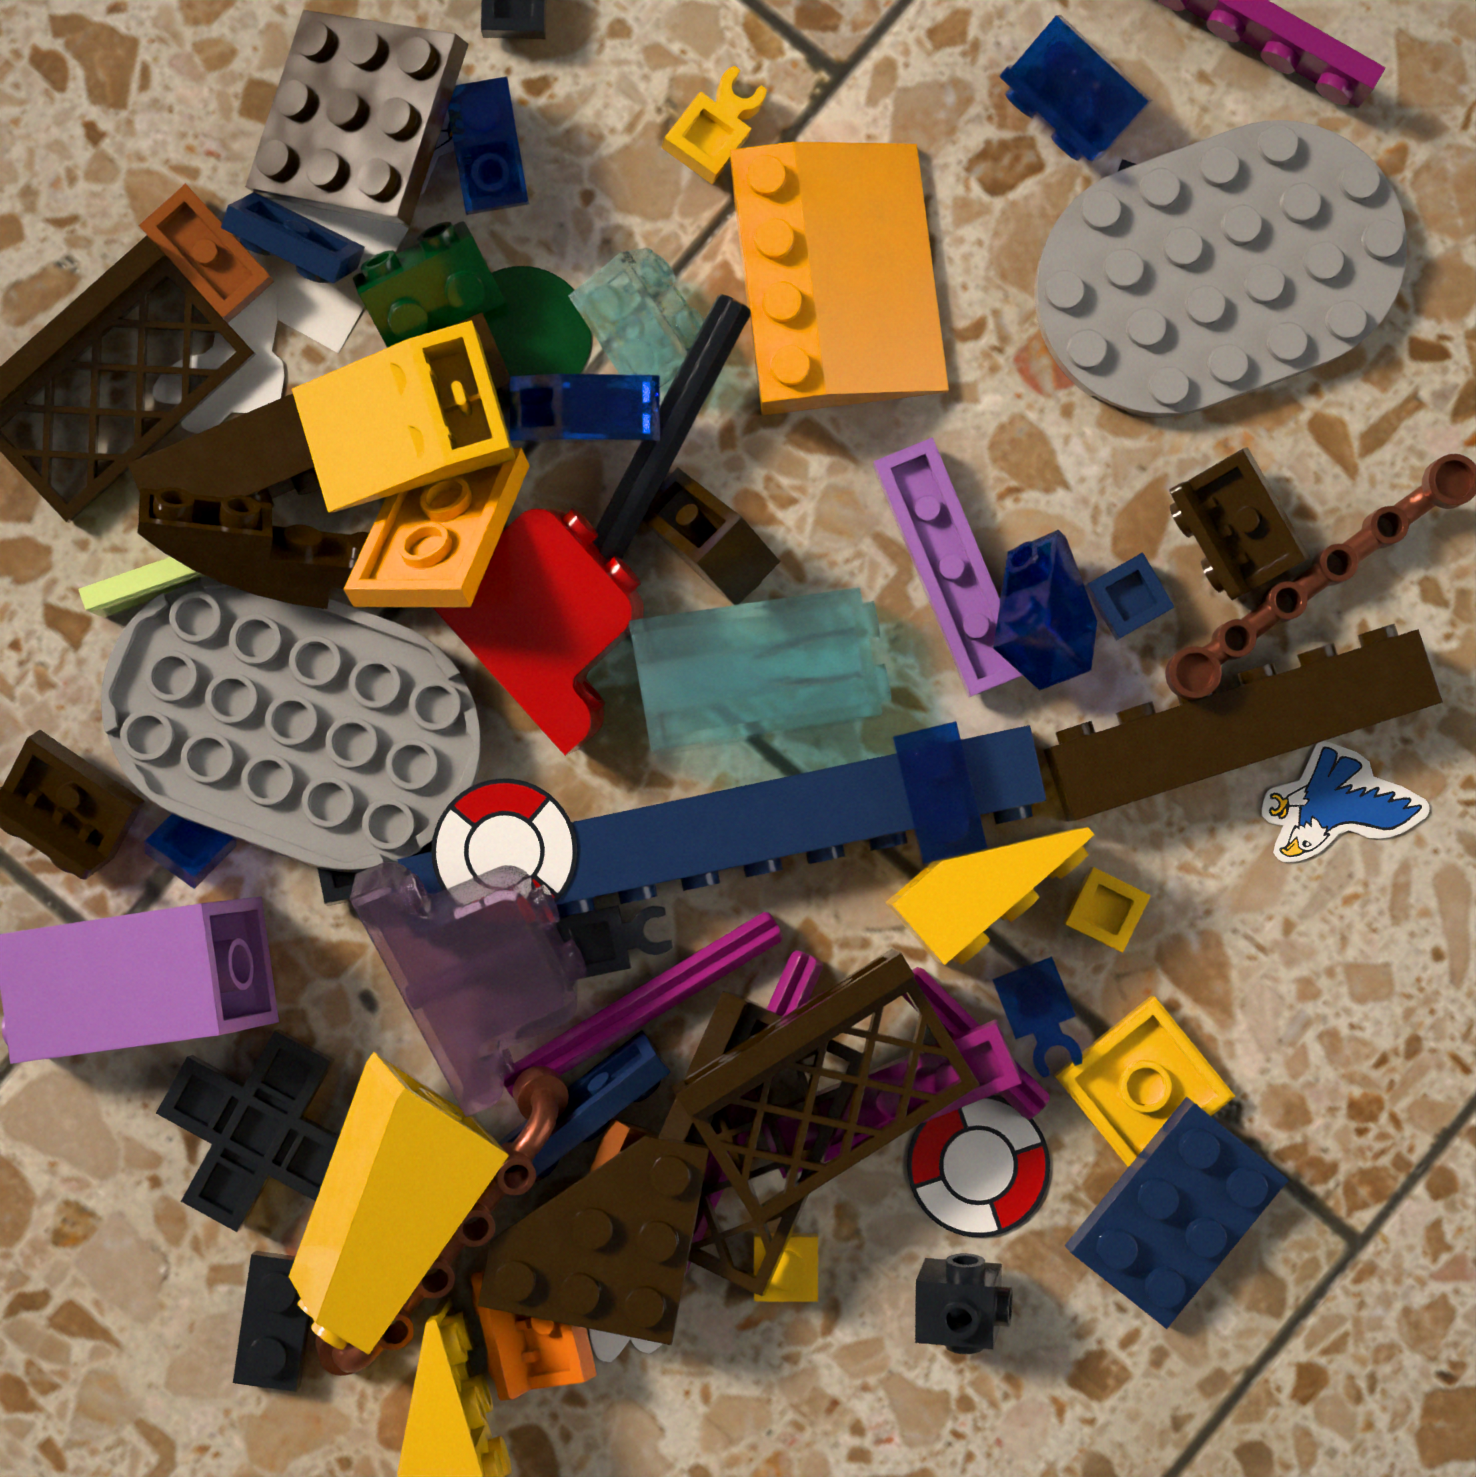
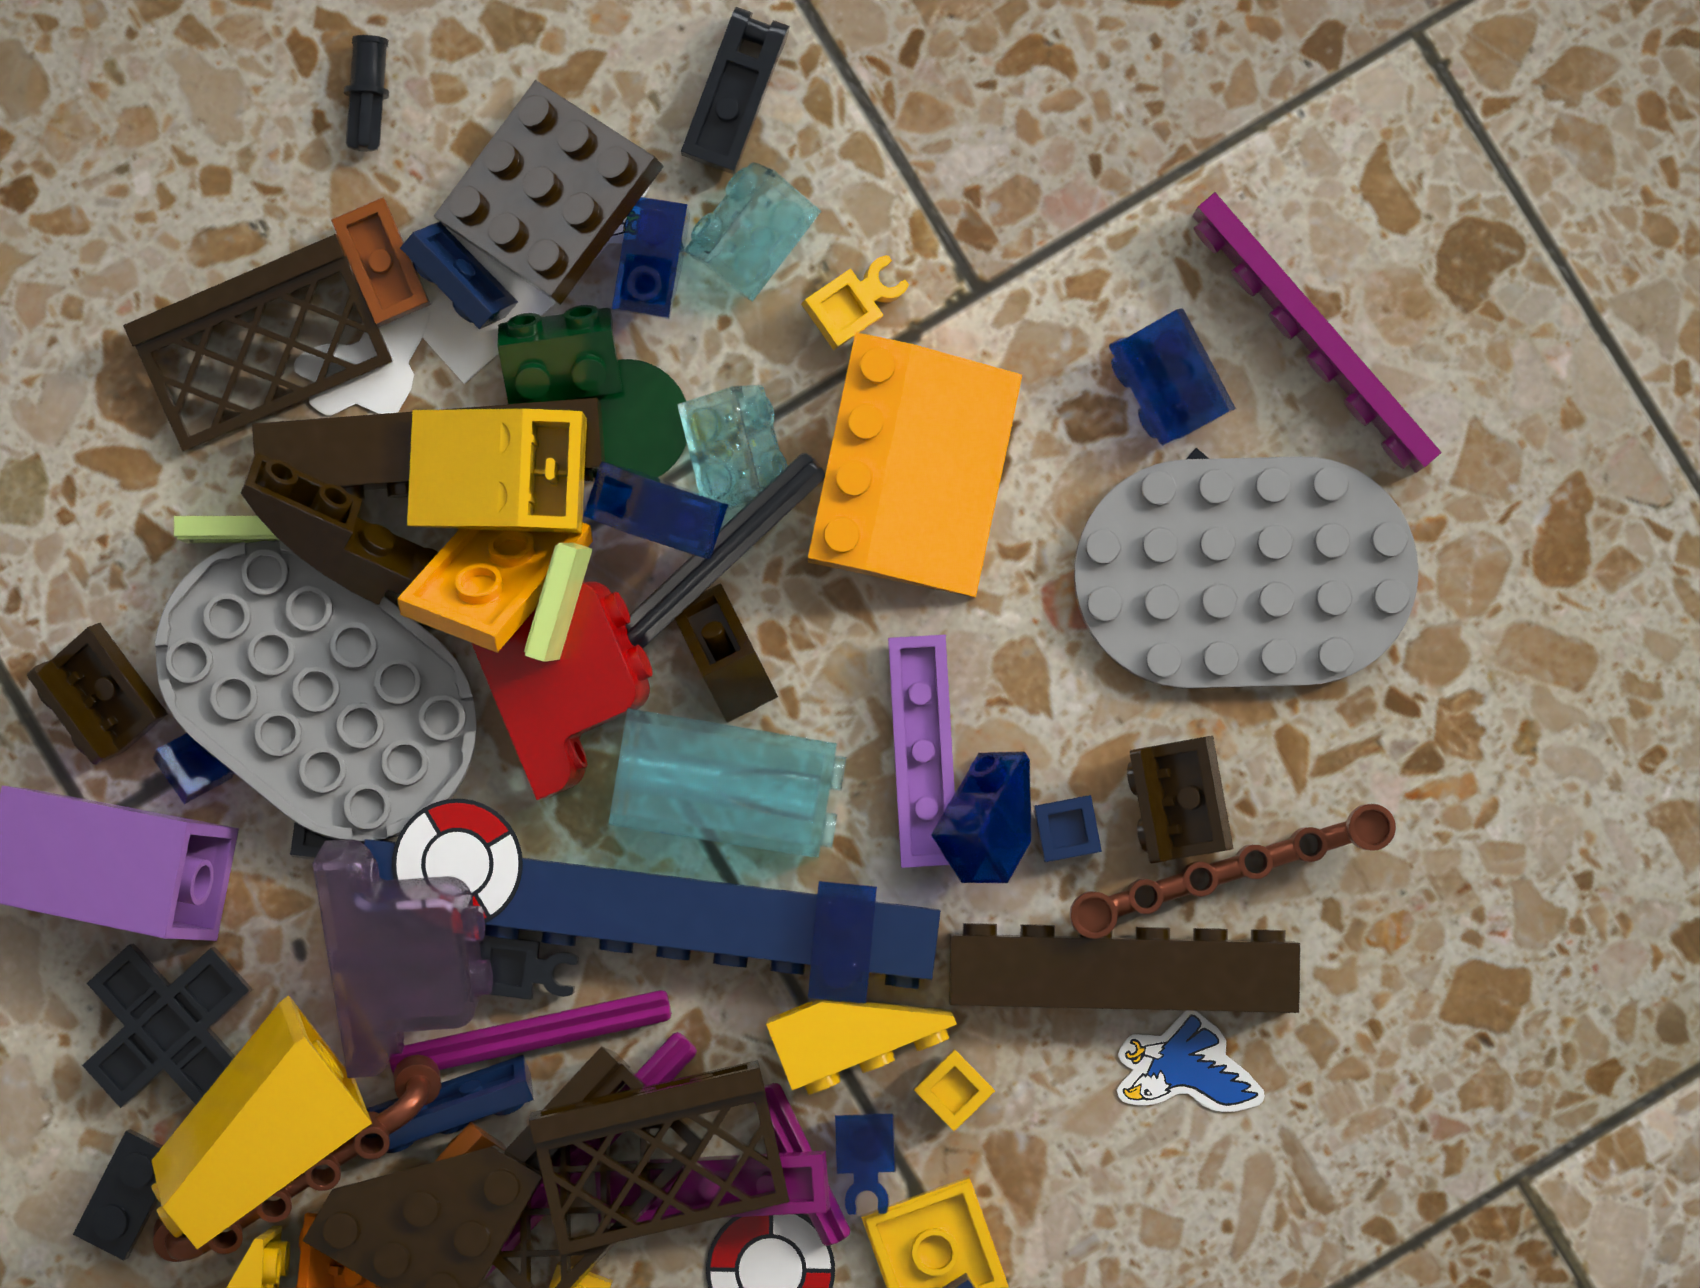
camera: 20 degrees right, 0 degrees up
(130, 82) = (366, 92): none -> black axle
(515, 534) = (557, 601): none -> yellowish green tile
(583, 86) = (752, 229): none -> clear light blue bracket

